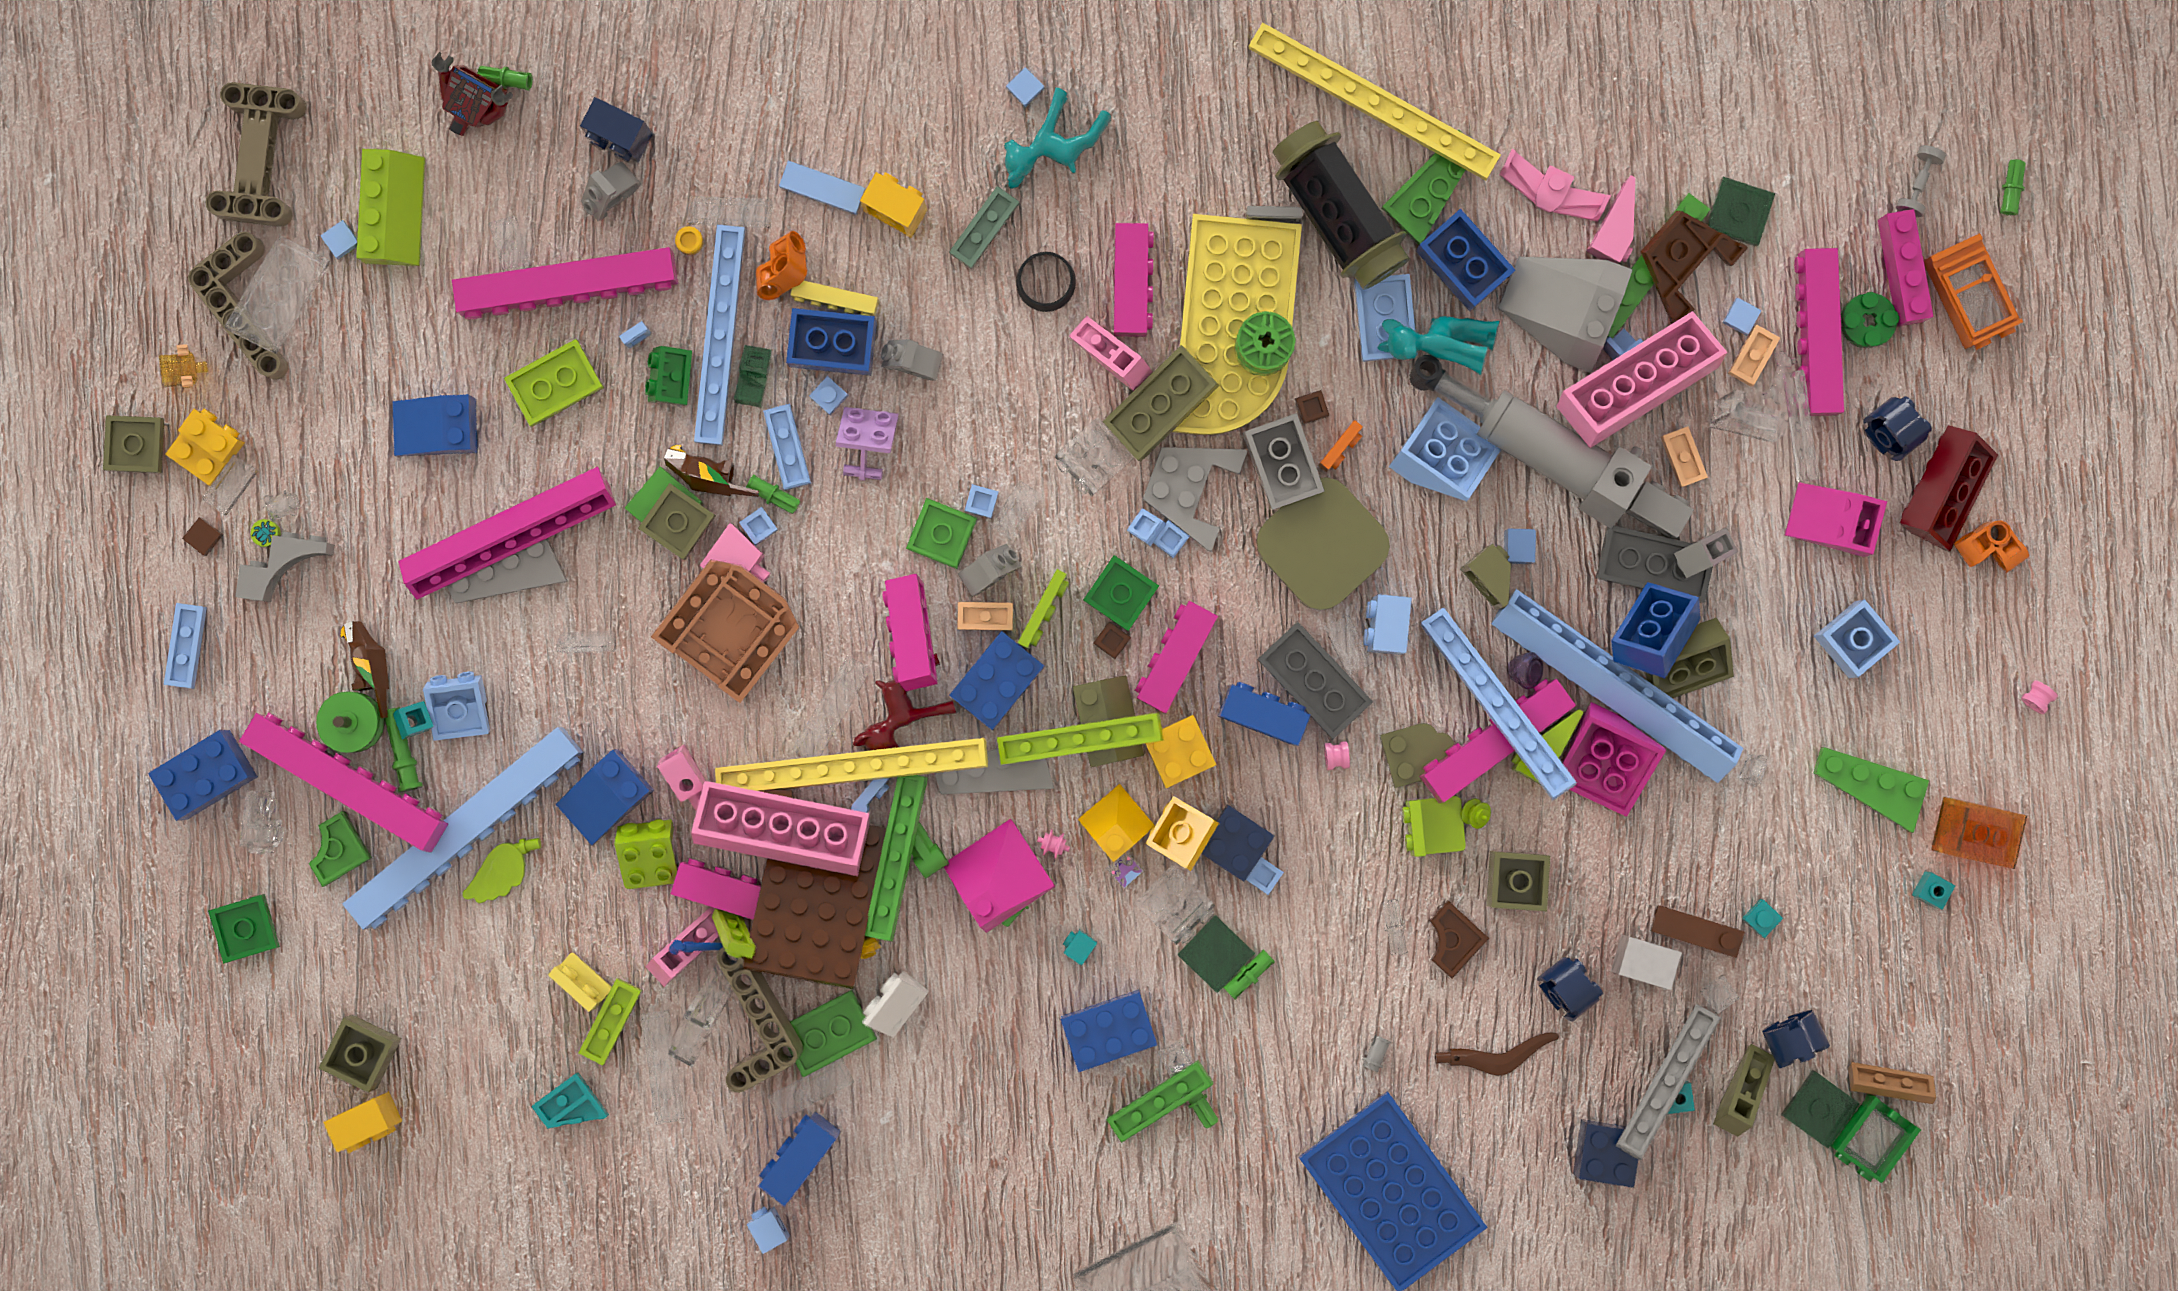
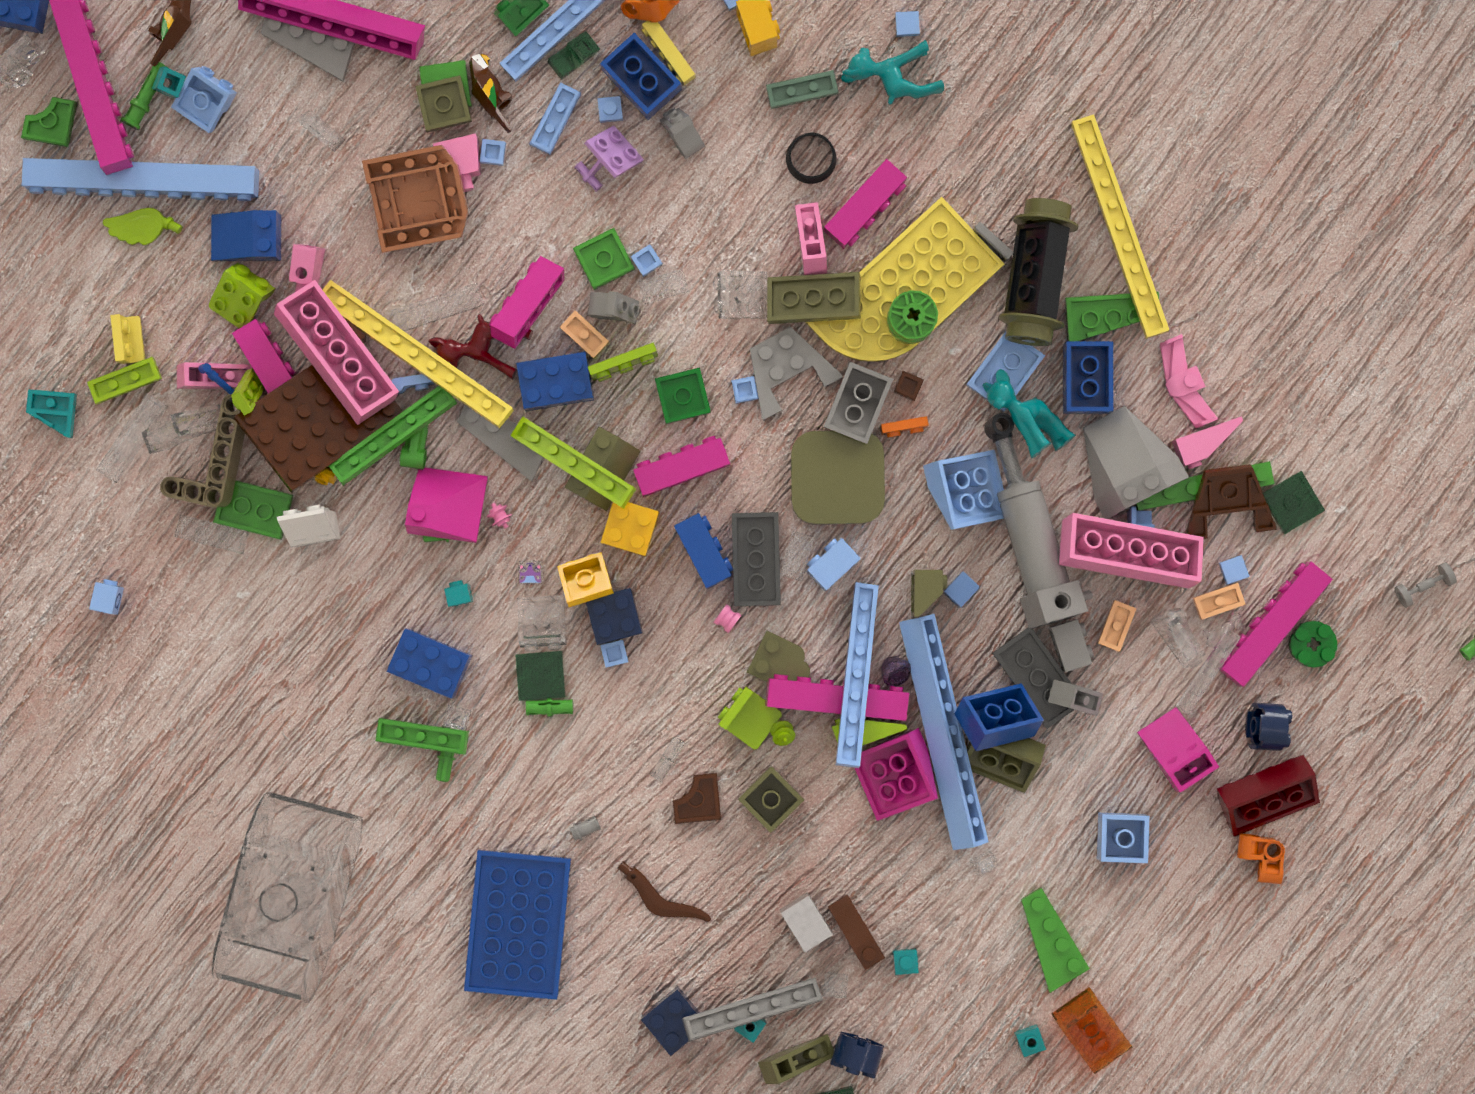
camera: 45 degrees right, 0 degrees up
(349, 722) = (128, 49): bright green wheel -> none
(774, 494) = (519, 141): bright green axle -> none
(798, 1157) = (164, 568): blue brick -> none
(1112, 640) = (651, 421): reddish brown tile -> none
(1116, 822) = (550, 537): yellow slope -> none
(1146, 527) = (736, 368): light blue tile -> none
(1569, 988) = (742, 895): dark blue brick -> none
(1905, 267) = (1365, 630): dark pink brick -> none
(1972, 292) = (1395, 684): orange door -> none
(2039, 697) = (1207, 978): bright pink wheel -> none

